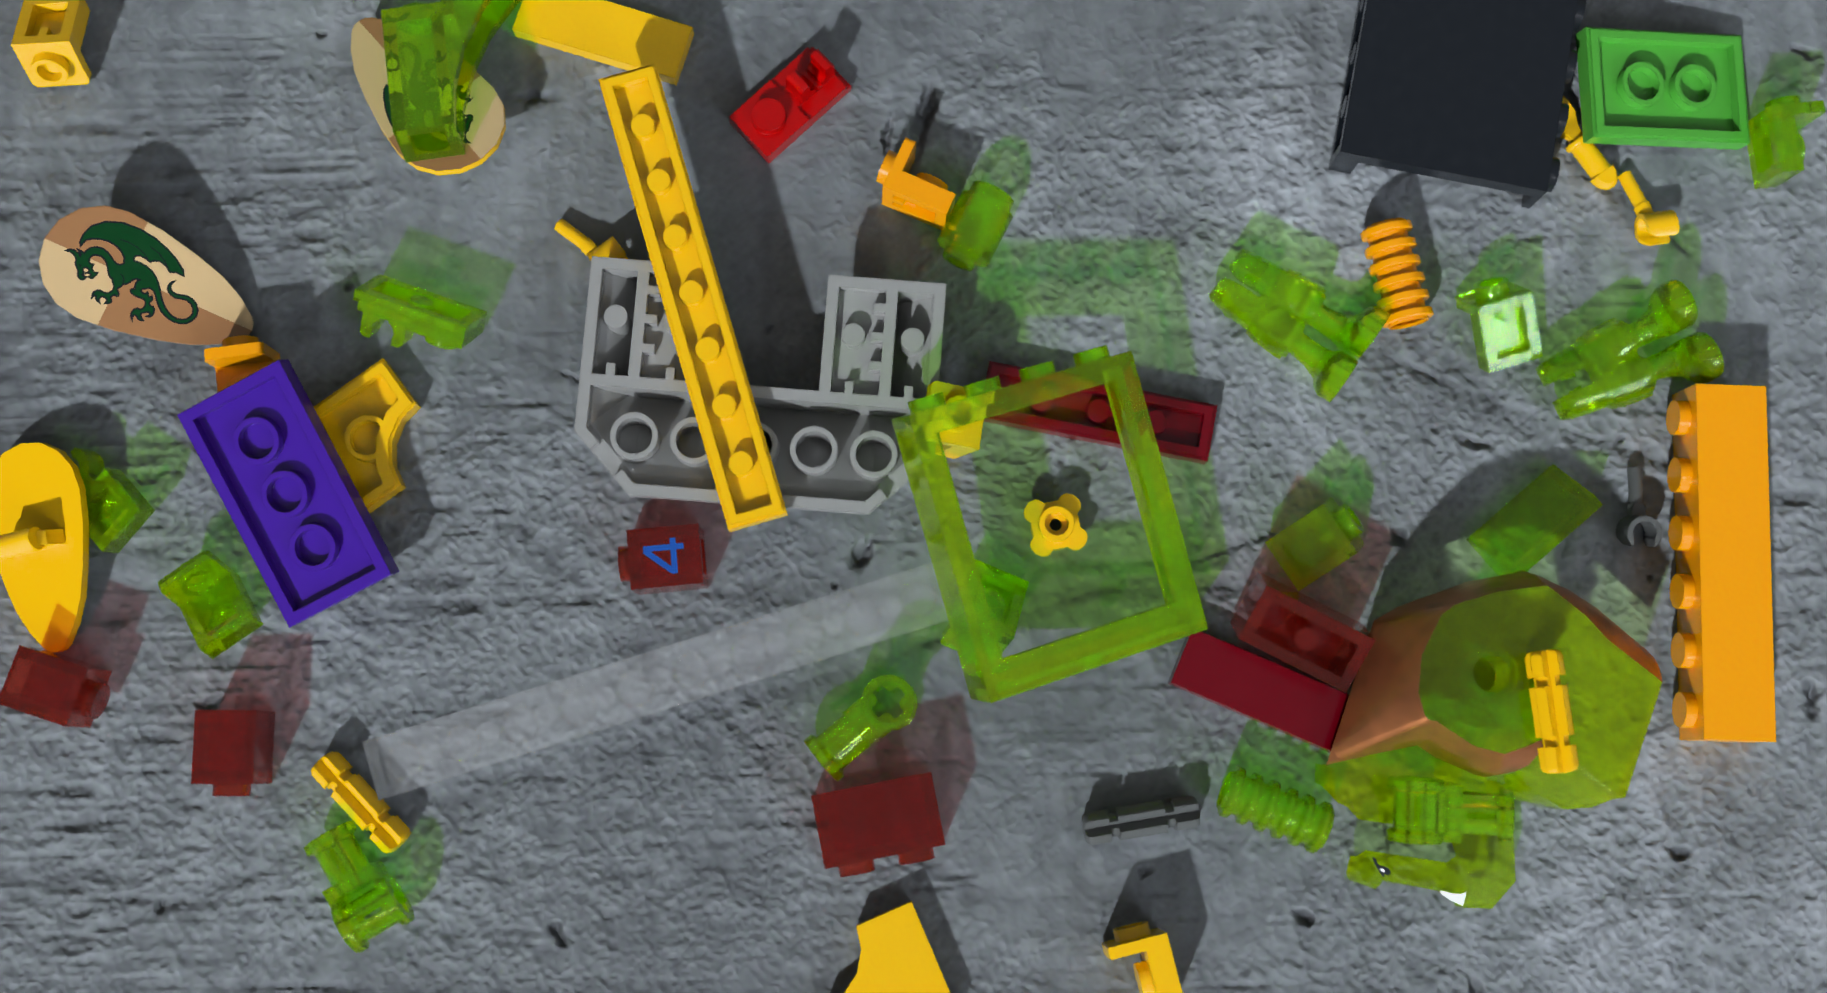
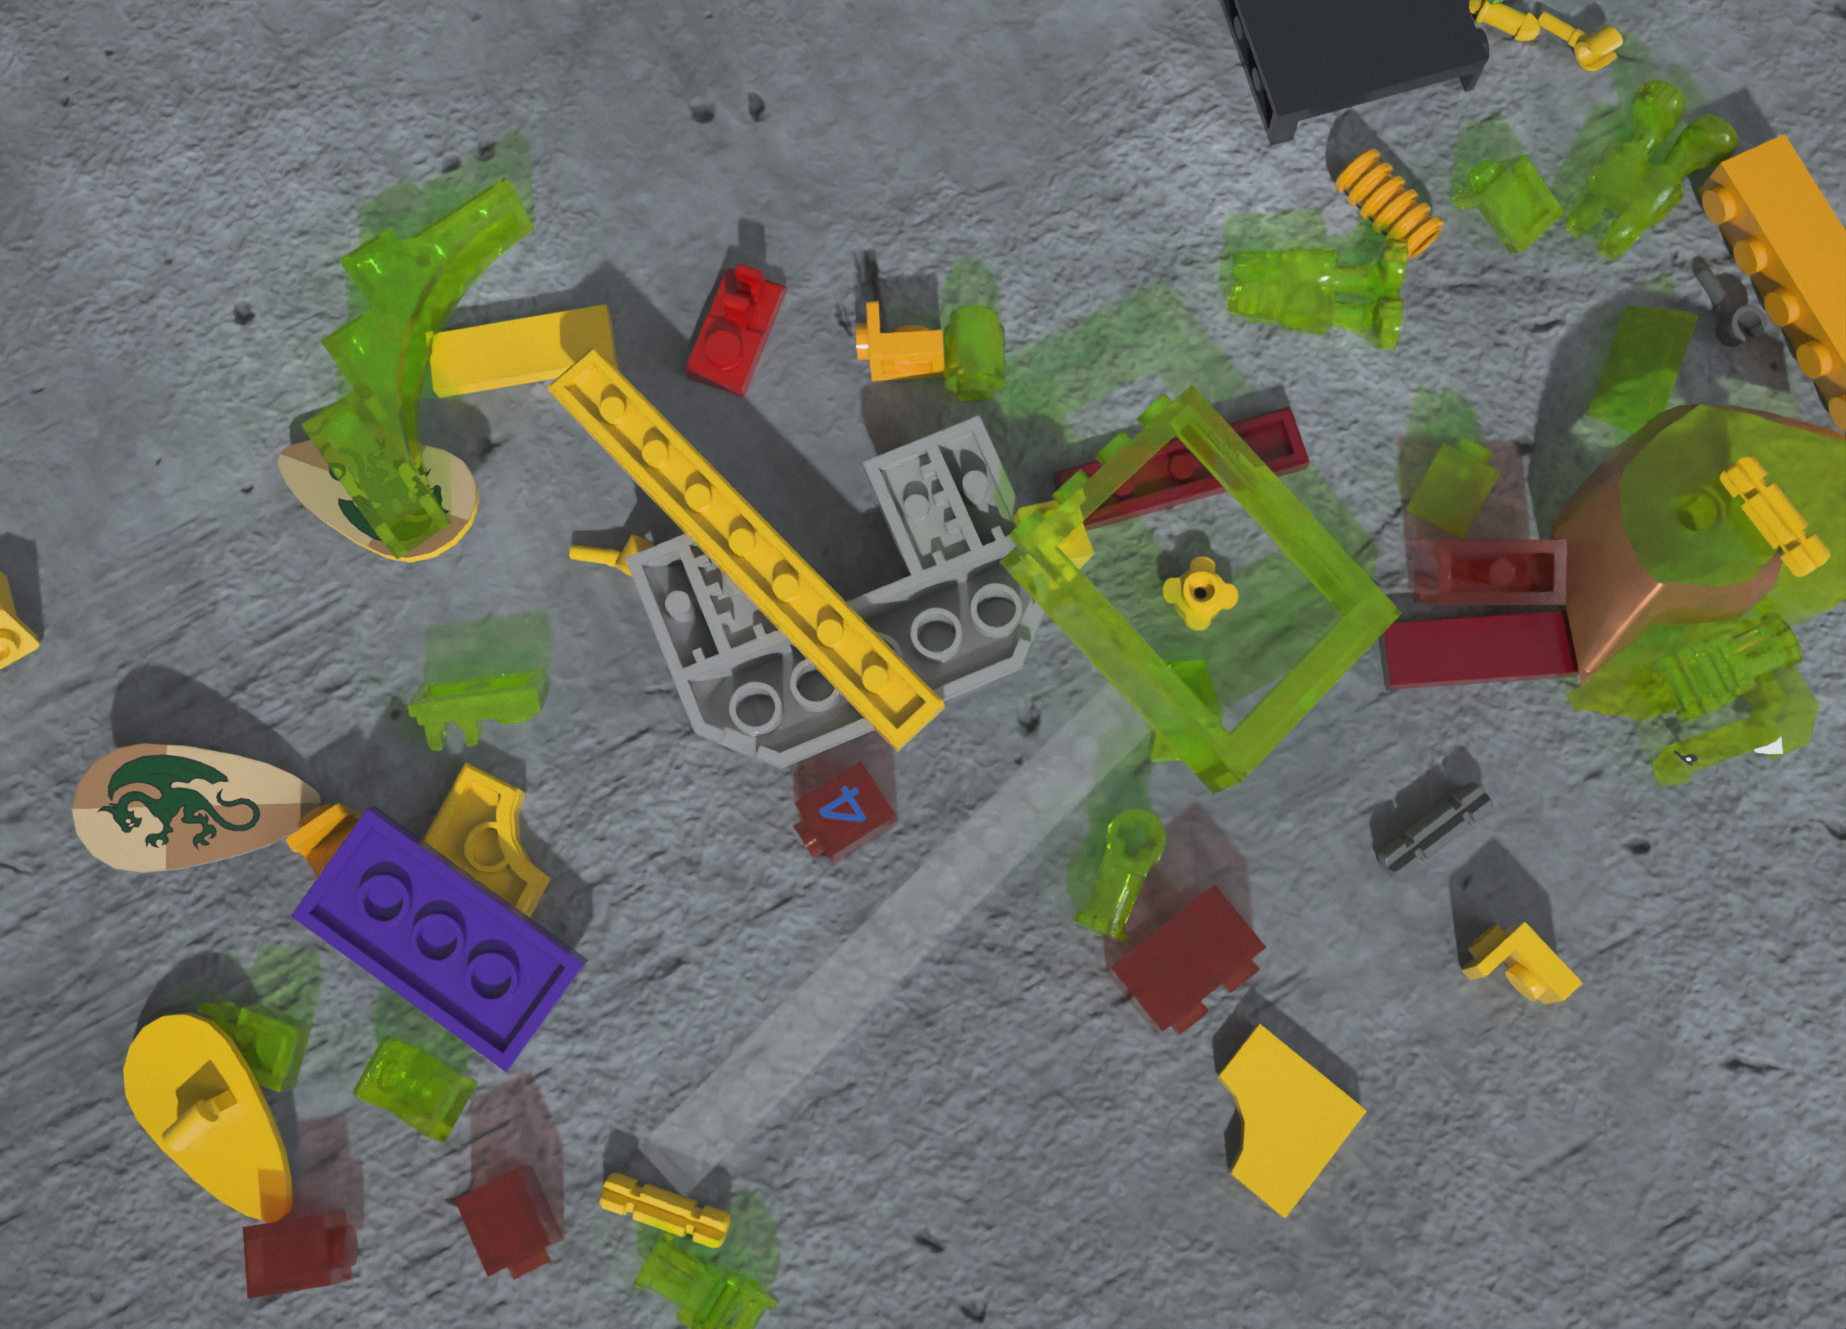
camera: 15 degrees left, 5 degrees down
(1275, 809) = (1556, 753): clear neon green piece -> none

